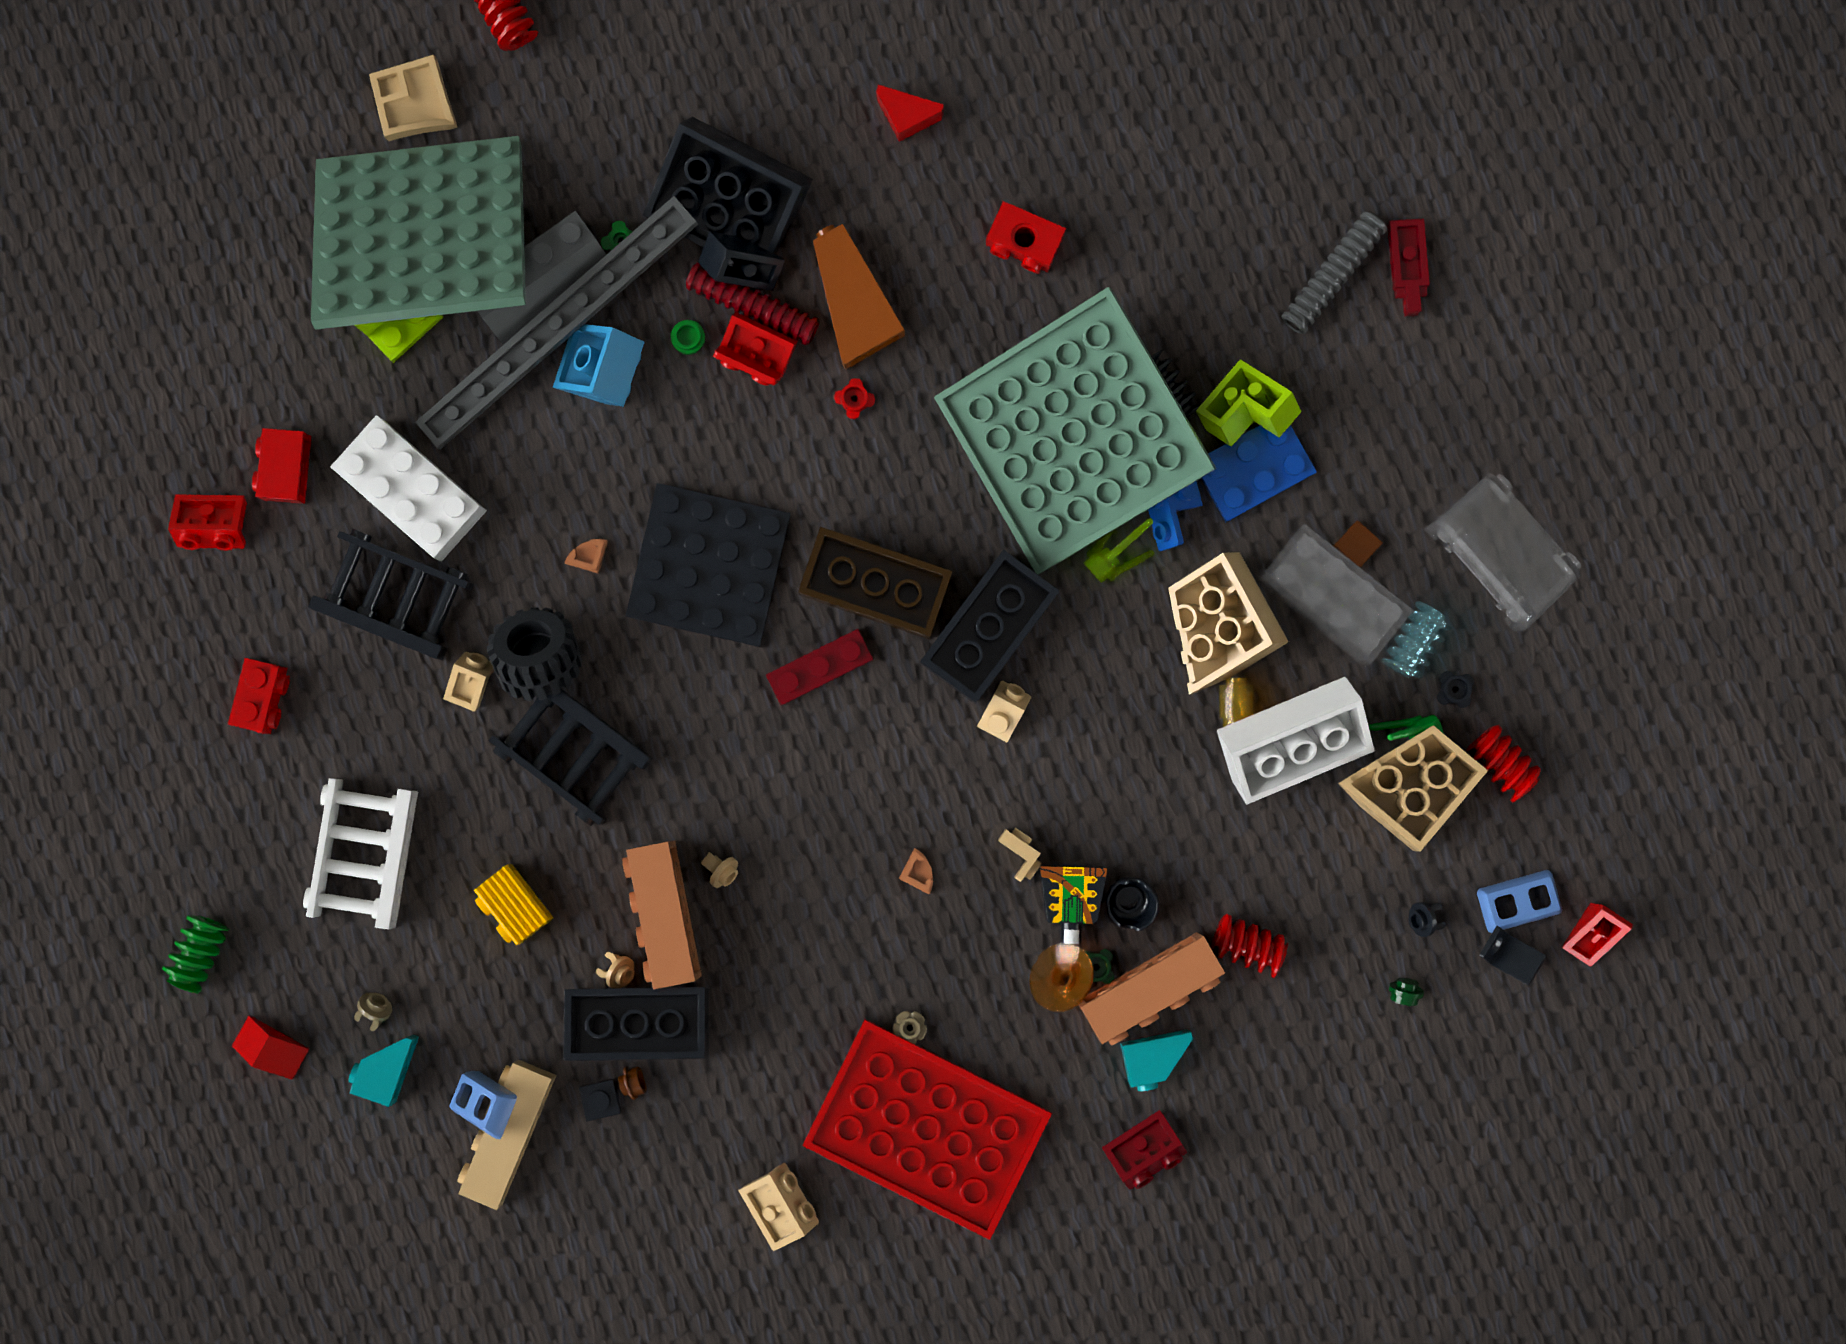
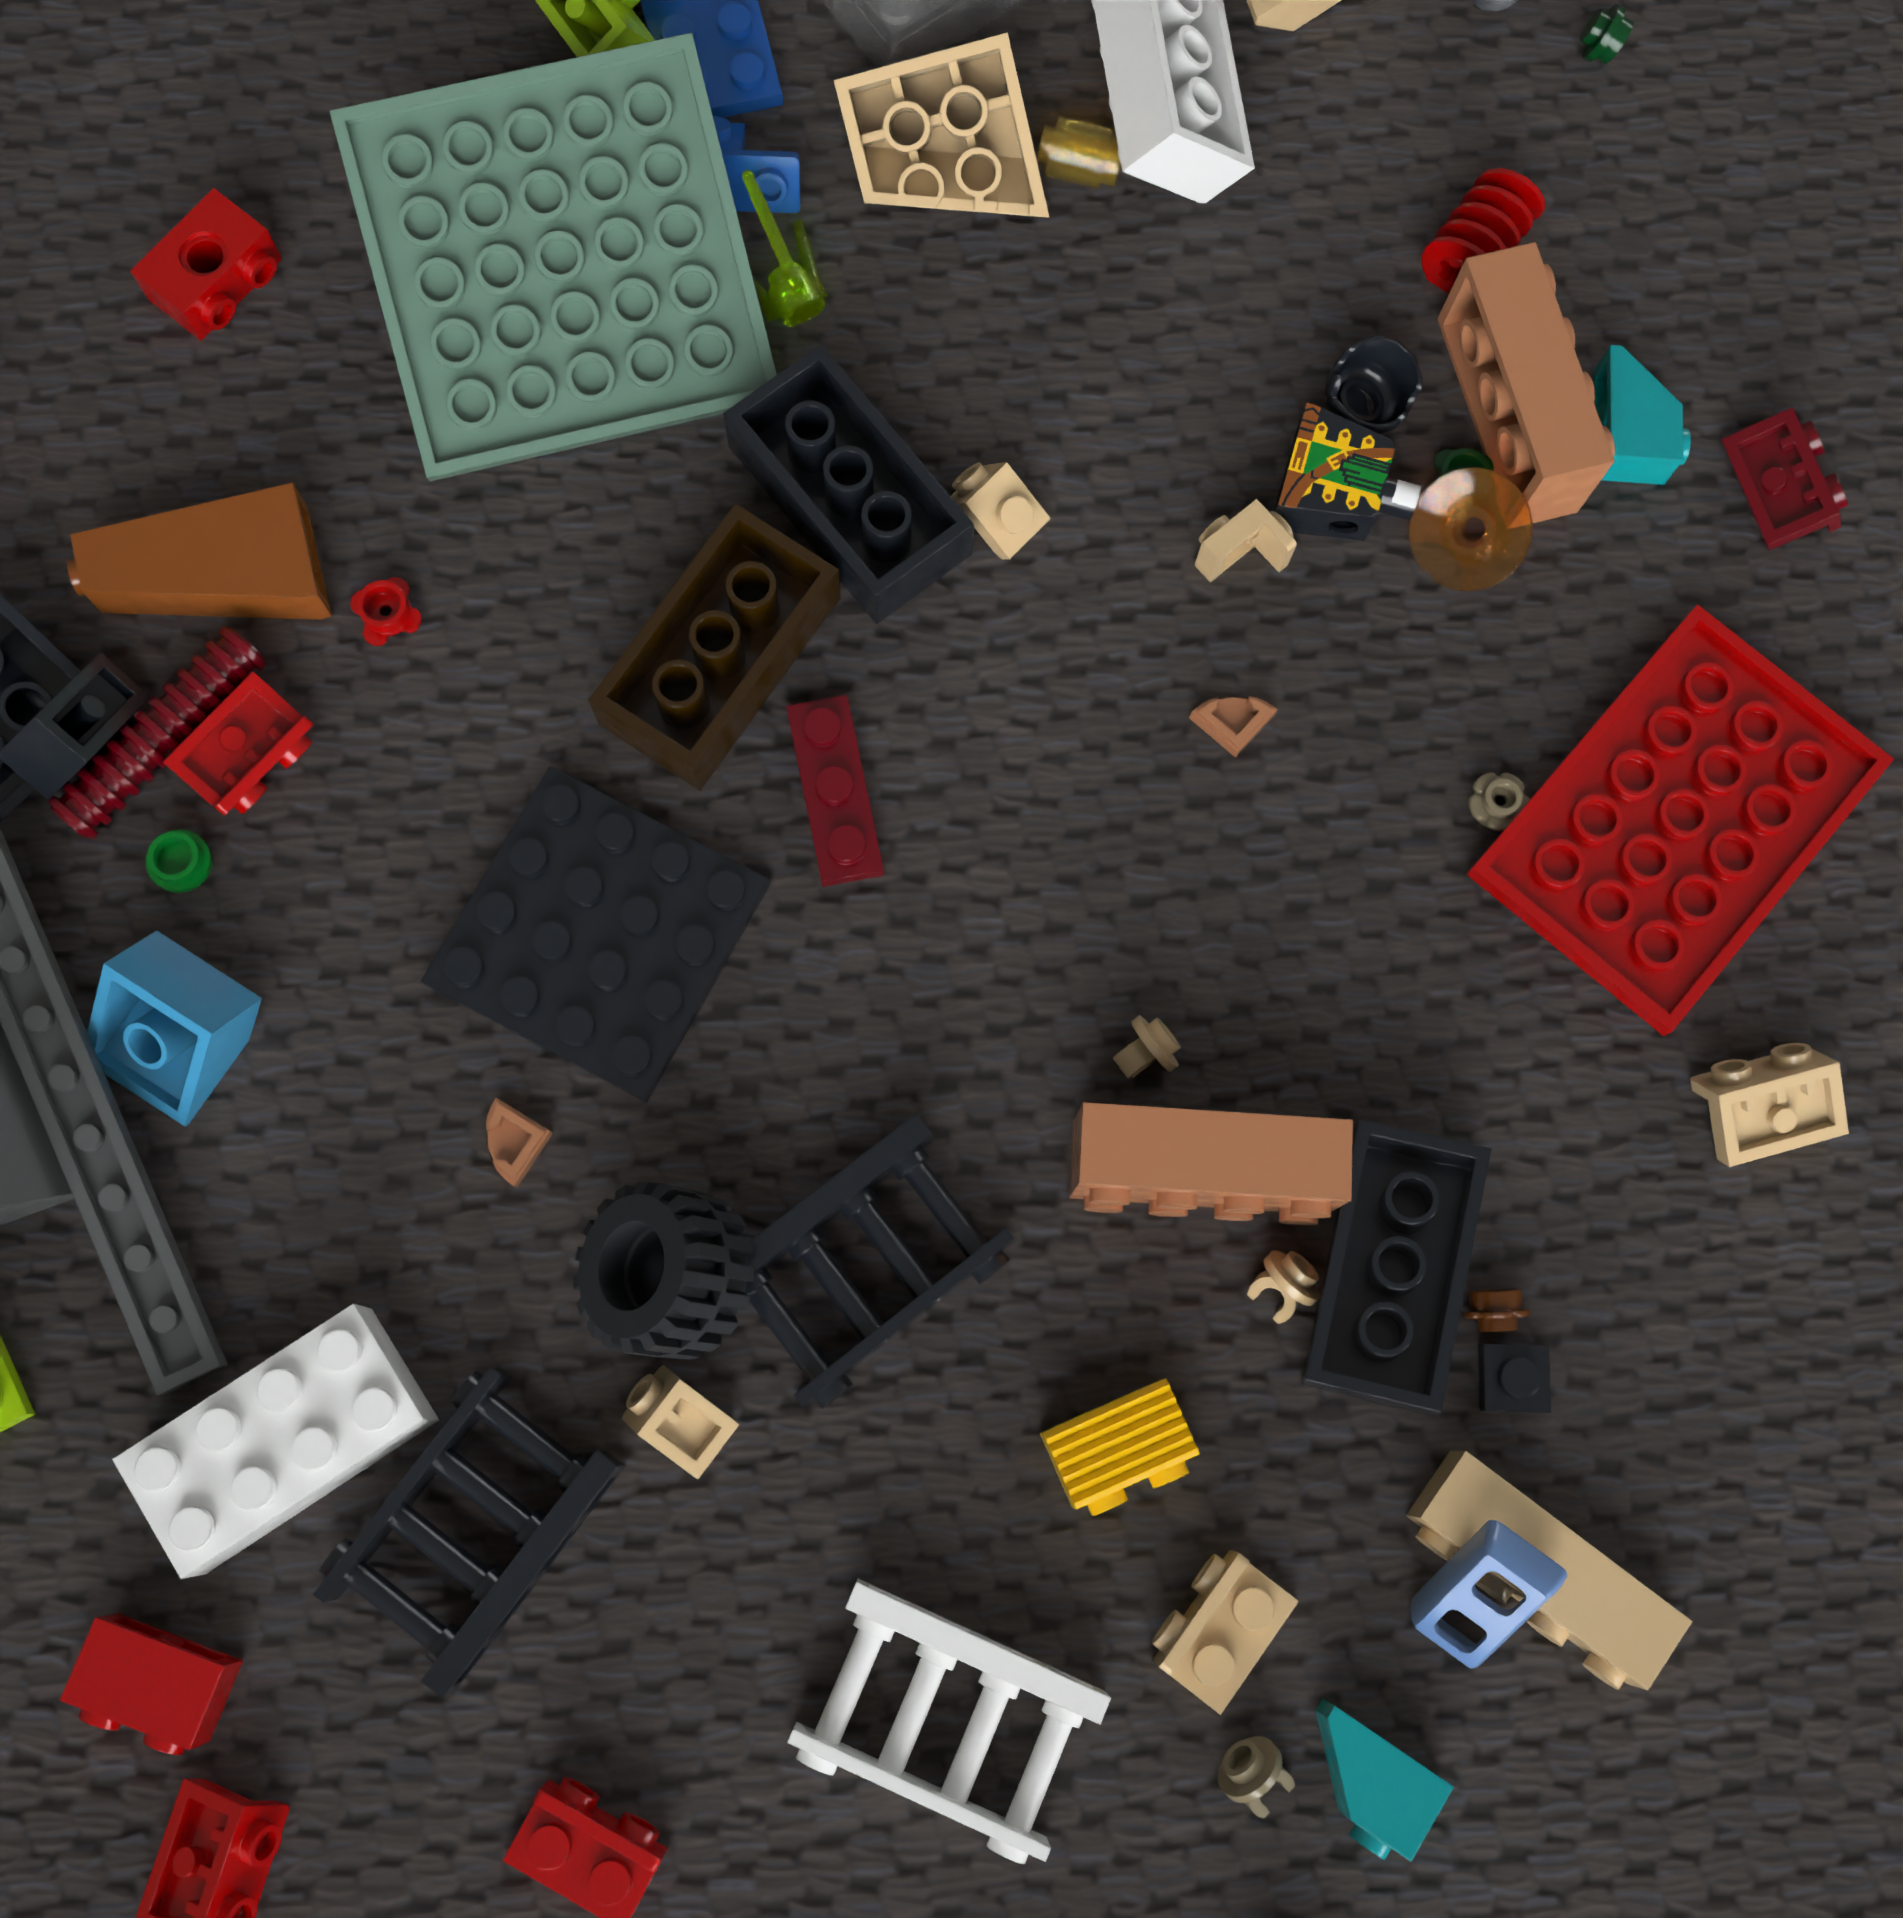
camera: 85 degrees left, 10 degrees down
(437, 978) = (1222, 1629): none -> tan bracket

